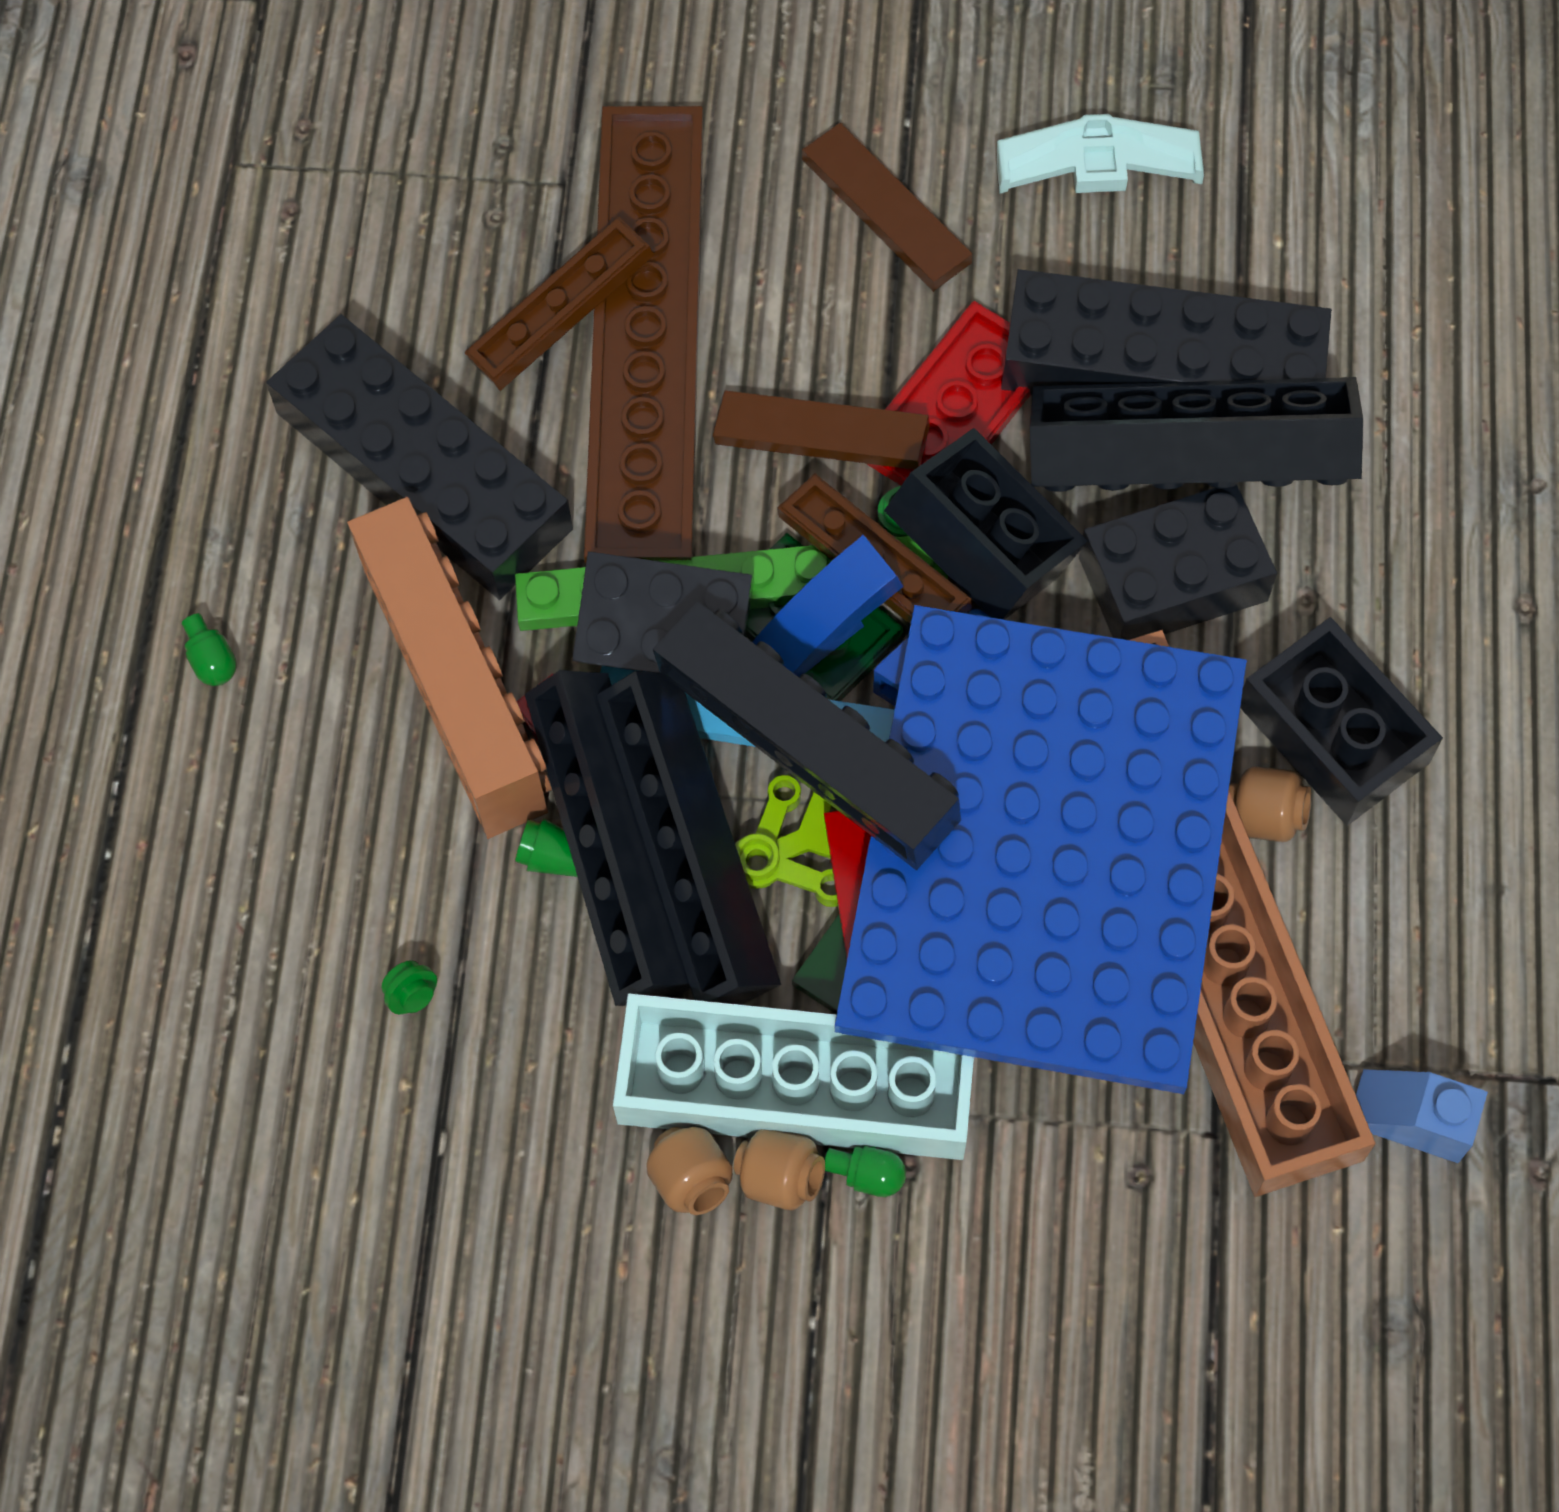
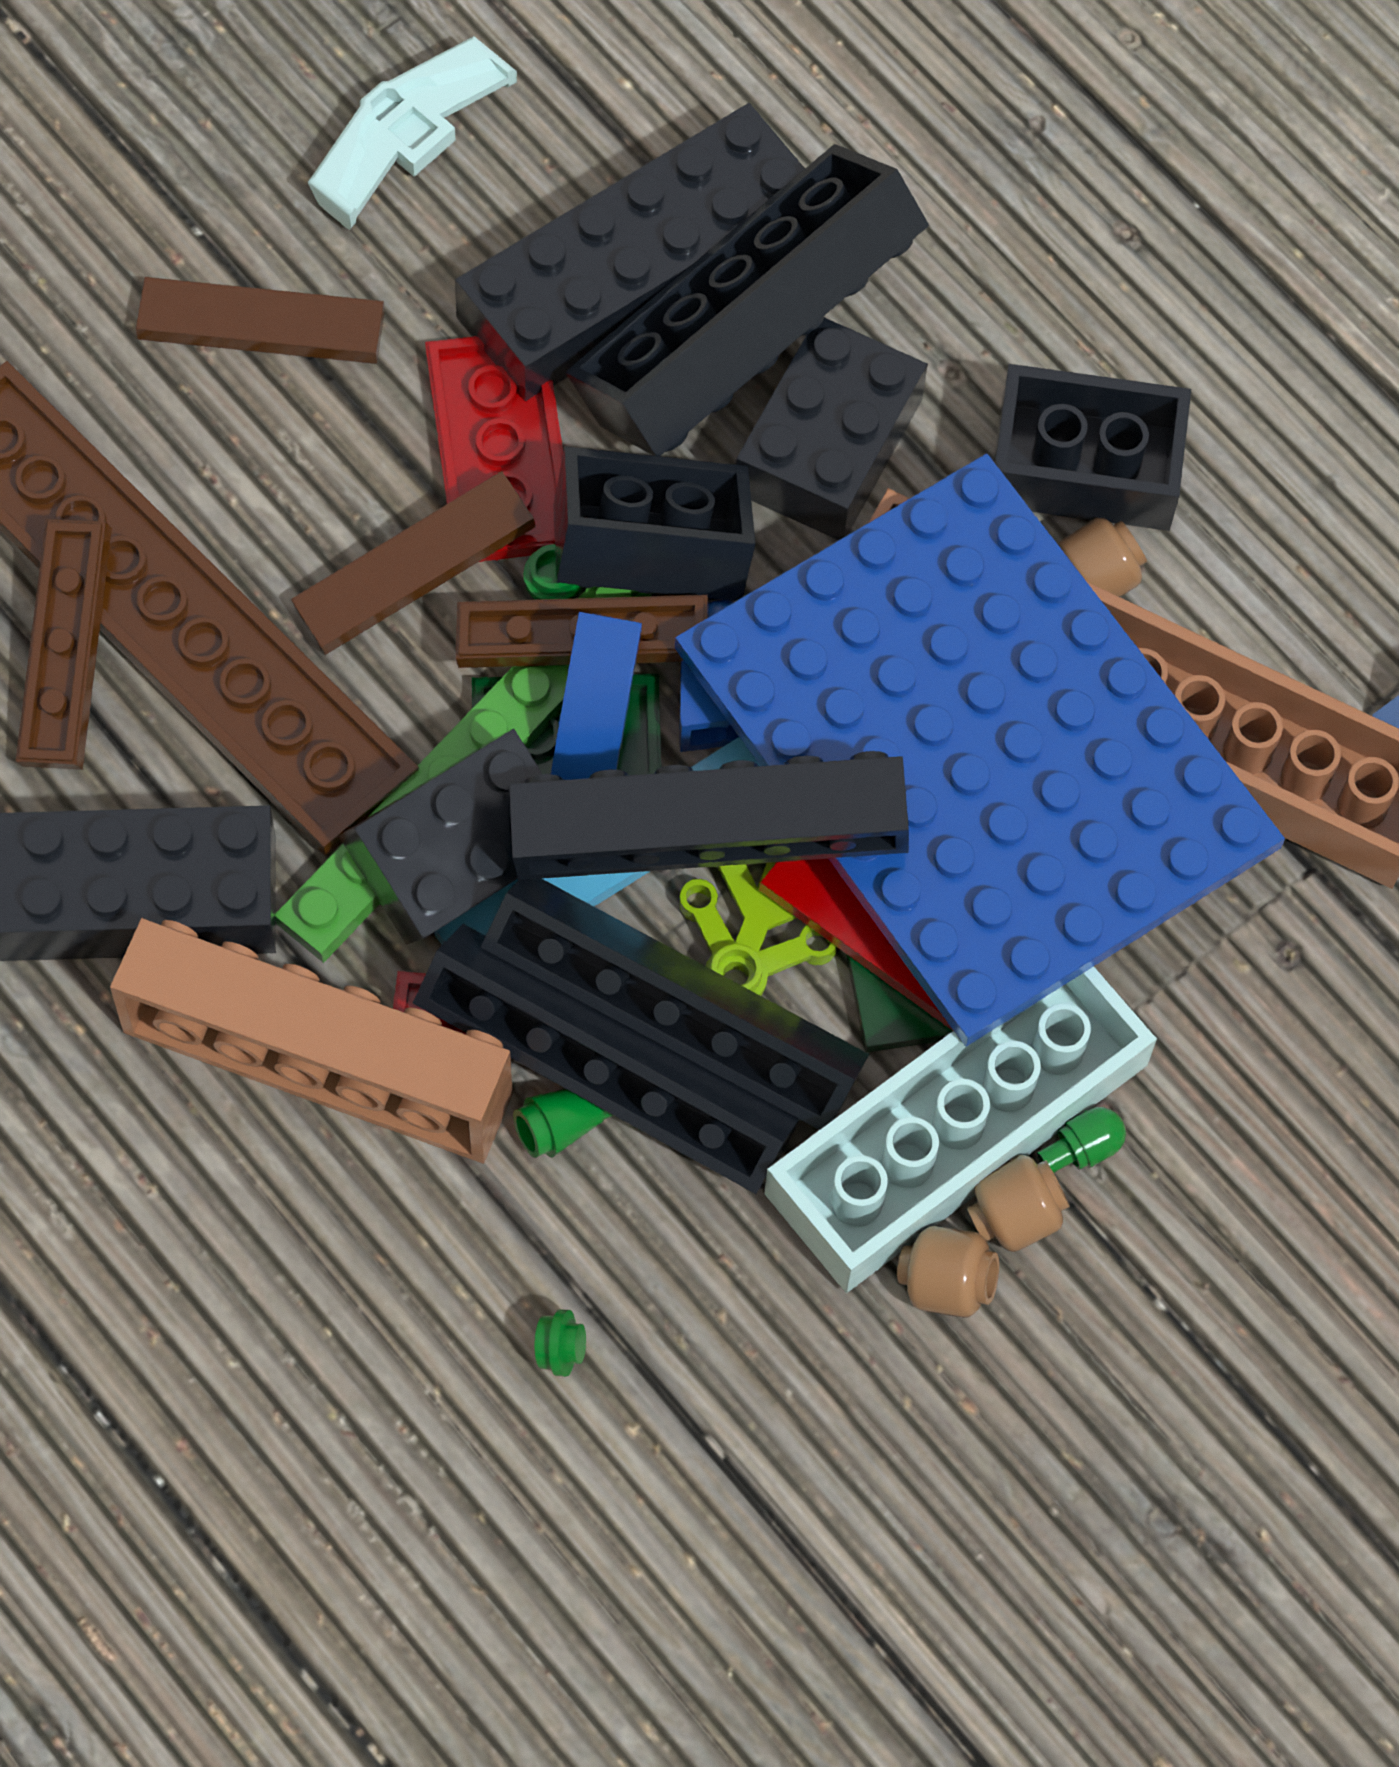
camera: 50 degrees left, 0 degrees up
(208, 652) = (66, 1224): green cylinder -> none

